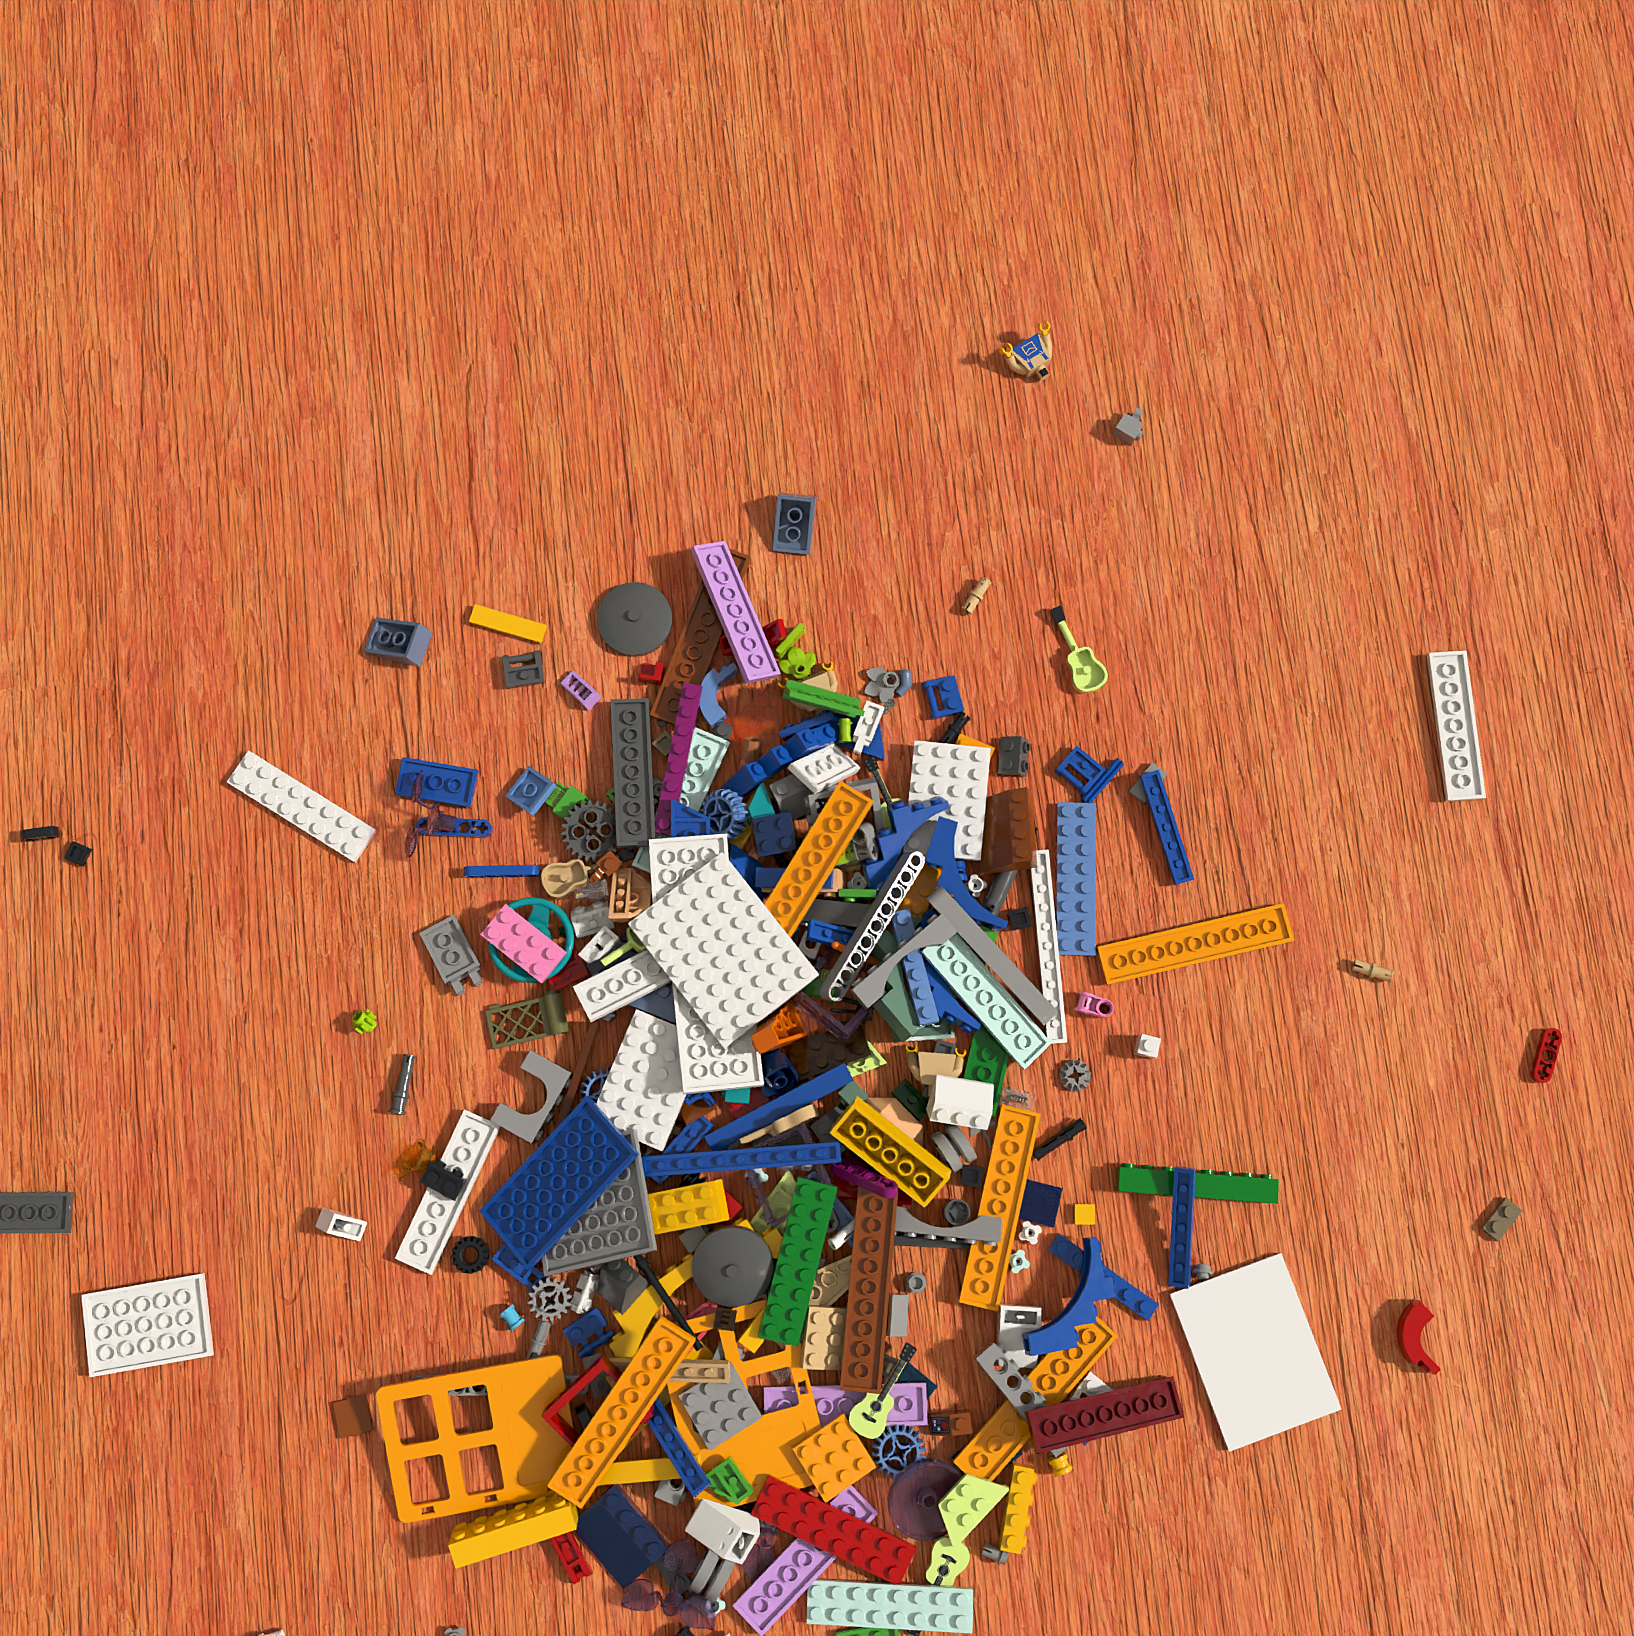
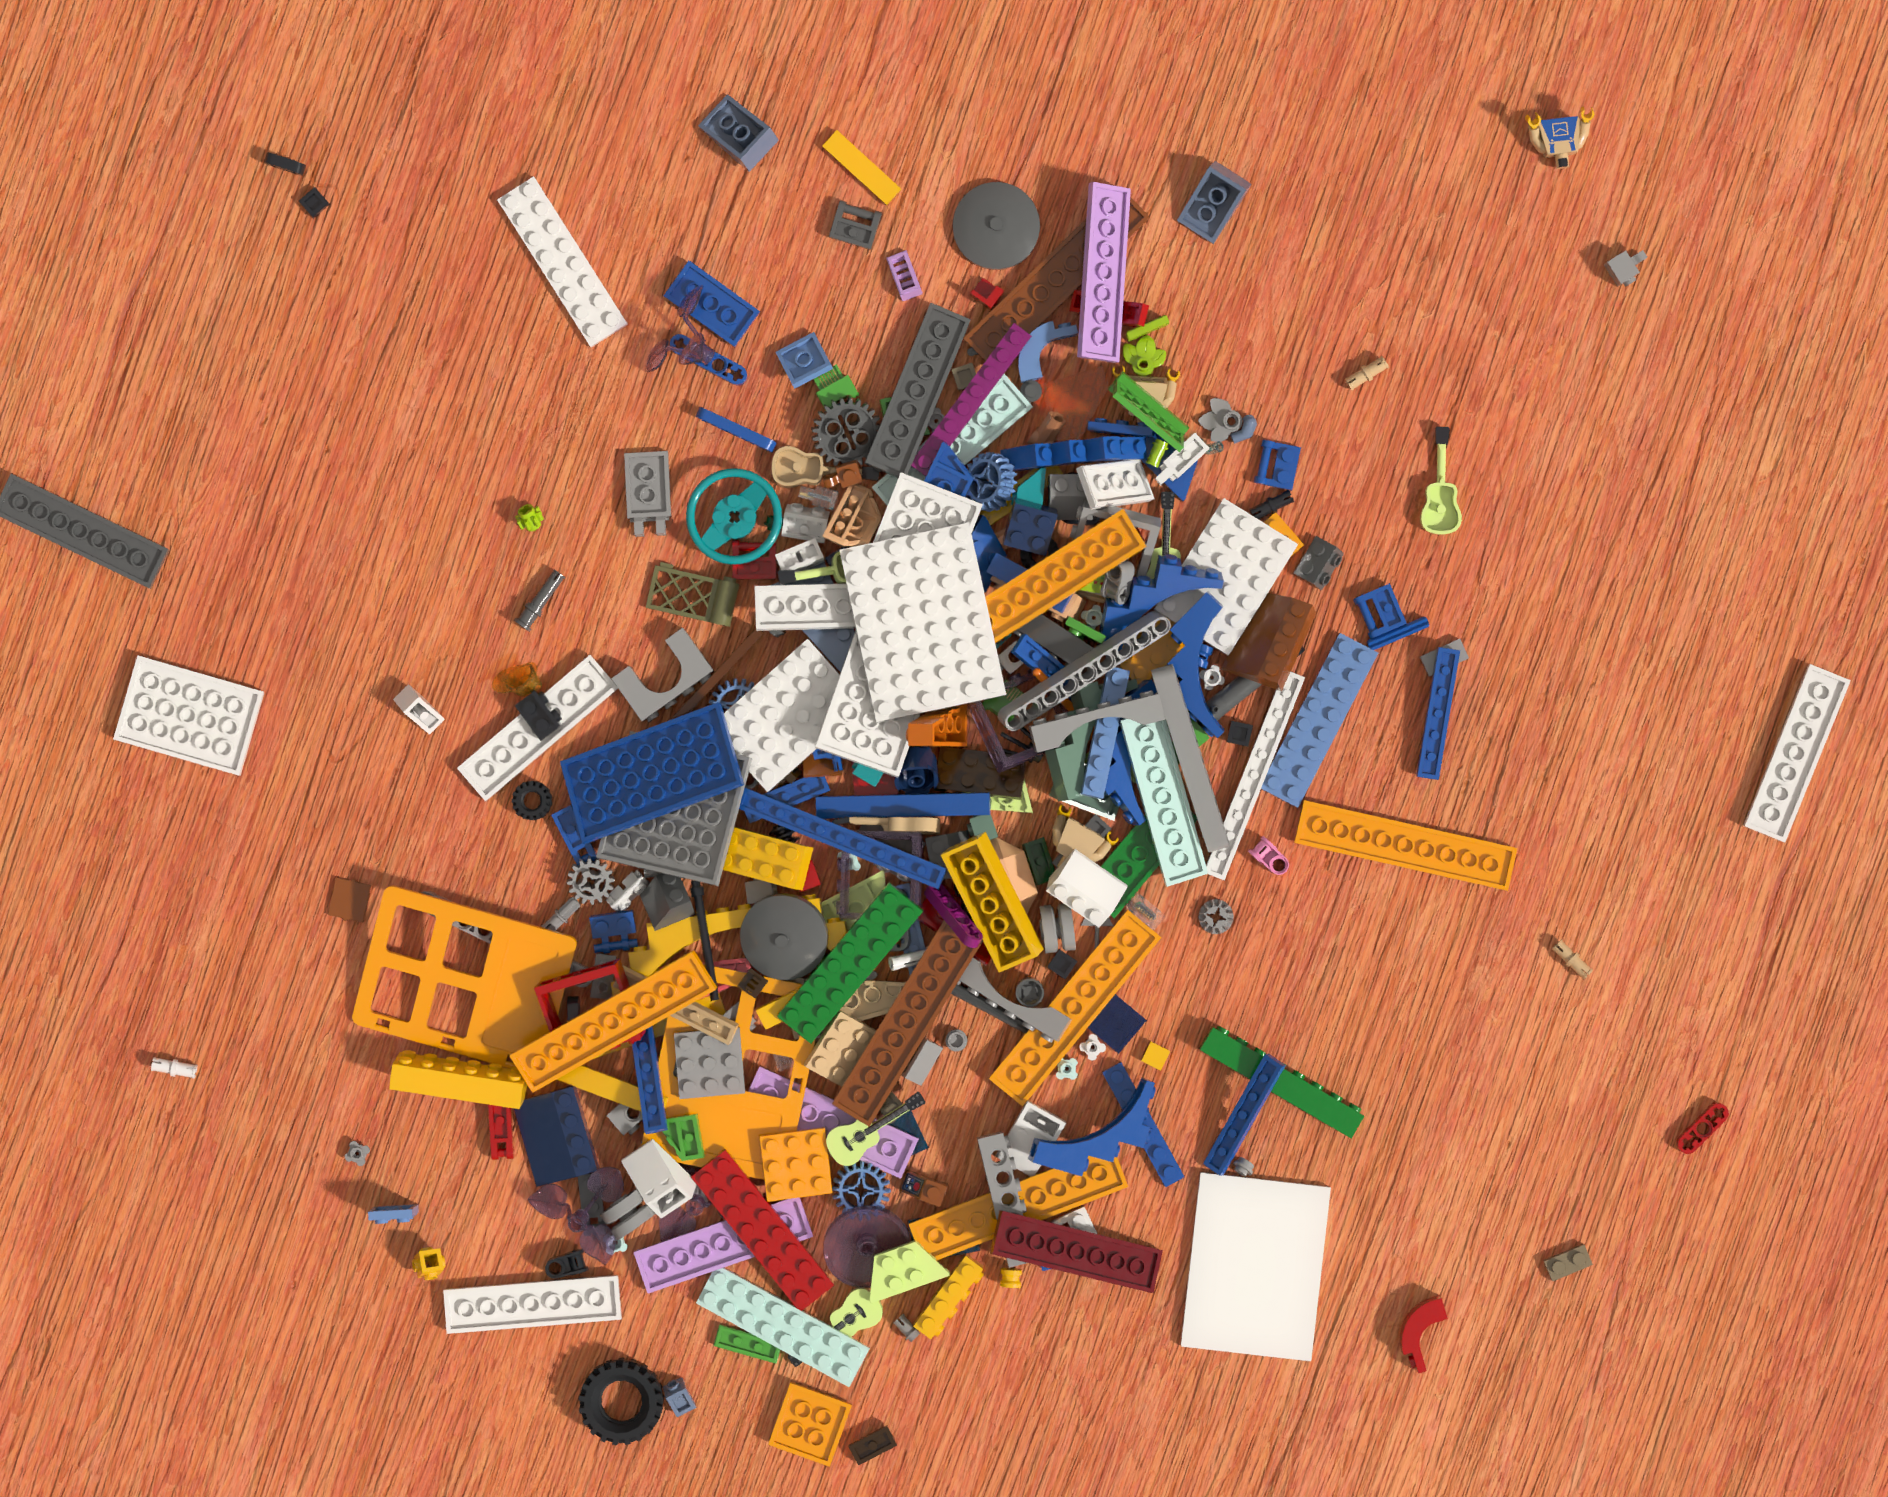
camera: 30 degrees right, 10 degrees up
(511, 1318) = (545, 881): medium azure bush -> none
(523, 943) = (725, 517): bright pink plate -> none
(1066, 1133) = (1168, 971): black pin -> none
(1147, 1046) = (1302, 923): white brick -> none

